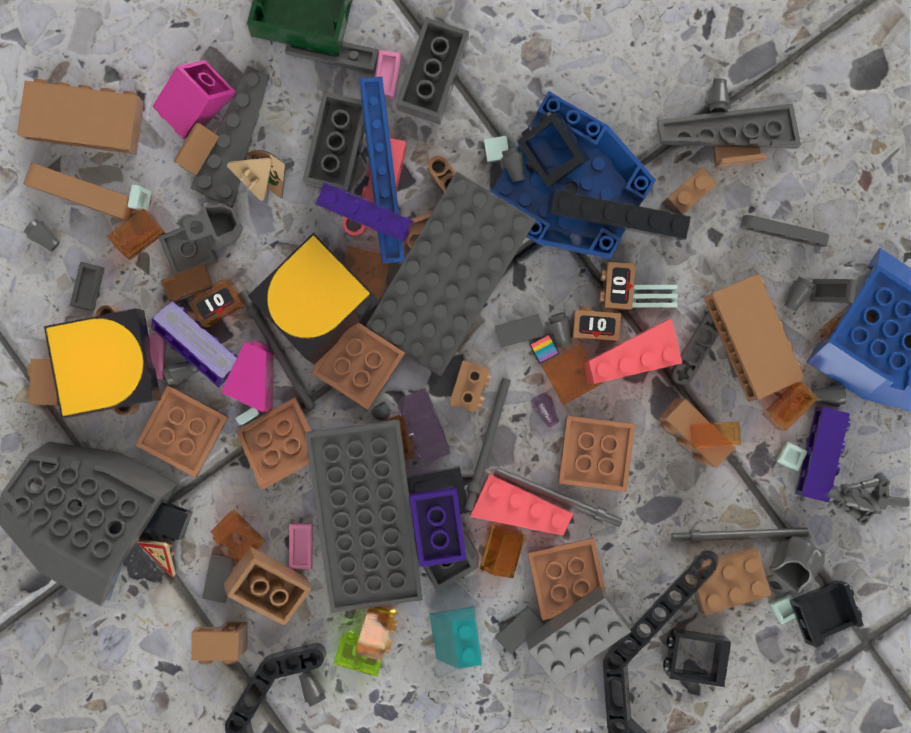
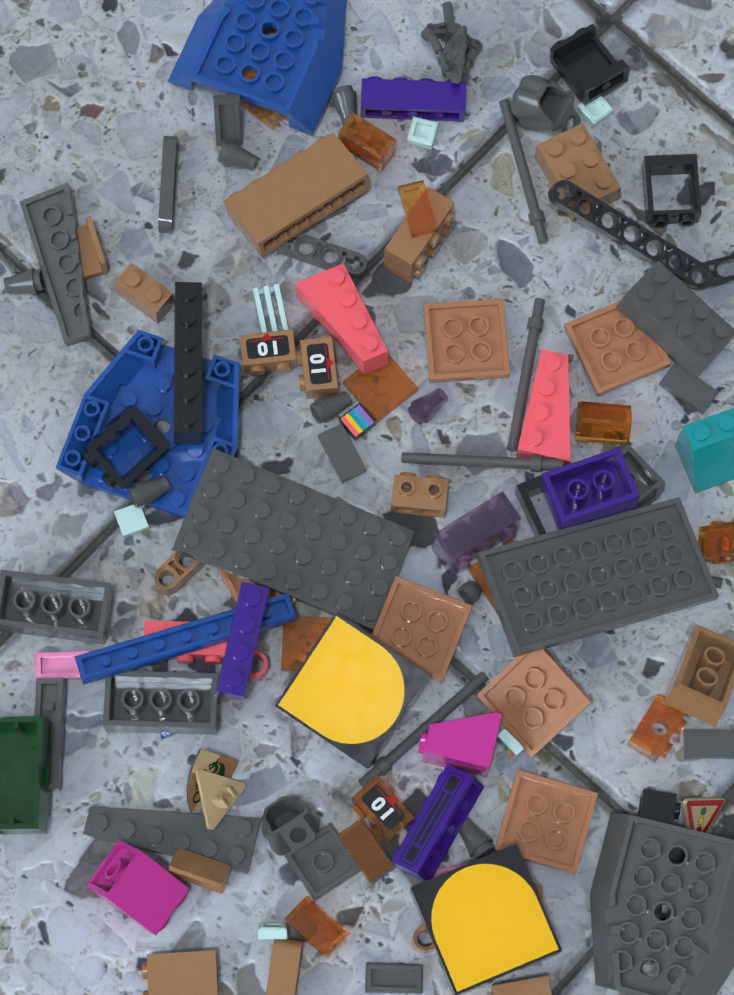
camera: 105 degrees left, 15 degrees down
(300, 545) = (651, 655): bright pink tile -> none

